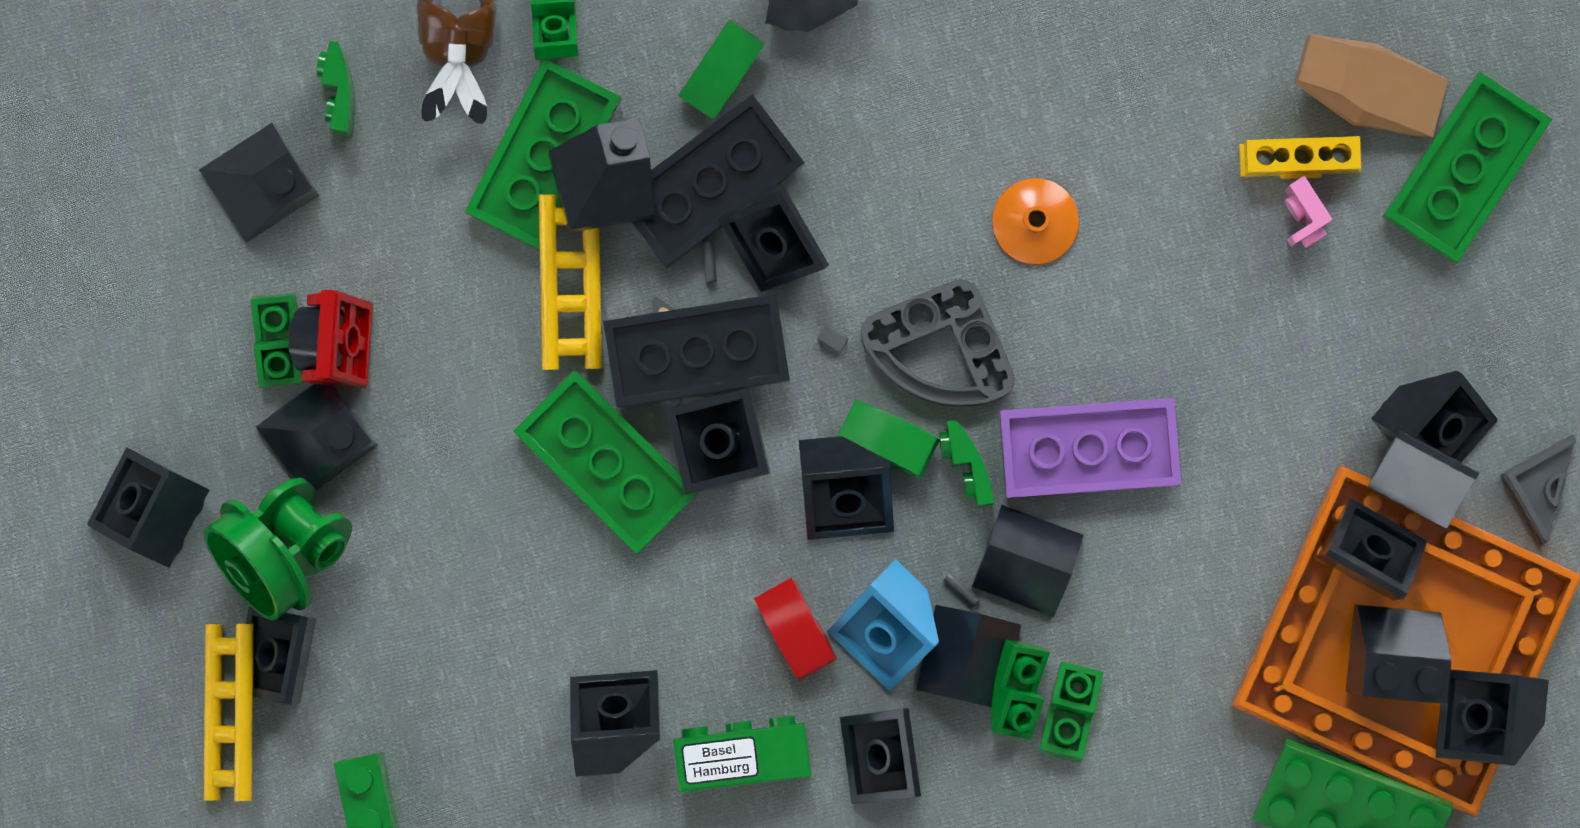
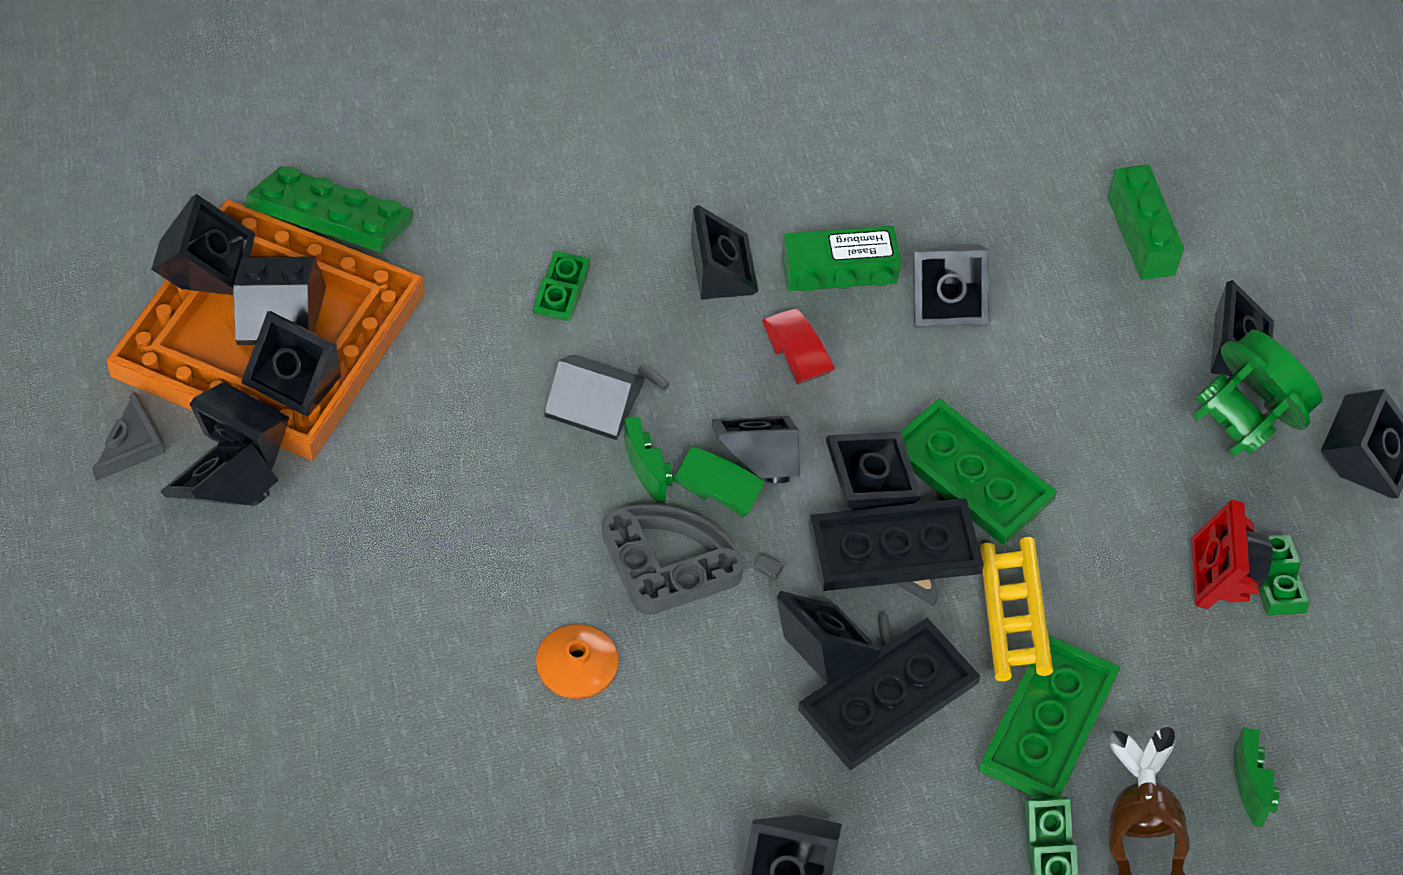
camera: 175 degrees right, 30 degrees down
(214, 731) = (1280, 286): yellow bar -> none
(259, 182) = (1313, 704): black slope -> none
(316, 435) = (1219, 479): black slope -> none
(604, 176) = (994, 678): black slope -> none
(721, 69) = (881, 787): green slope -> none
(889, 626) = (716, 346): dark azure slope -> none
(966, 656) = (649, 324): black slope -> none
(1014, 697) = (608, 297): green slope -> none
(1090, 448) = (535, 471): medium lavender plate -> none
(1291, 167) = (333, 705): yellow piece -> none
(1306, 205) = (316, 652): bright pink bracket -> none
(1371, 85) = (241, 763): medium nougat piece -> none
(1467, 168) = (156, 691): green plate -> none

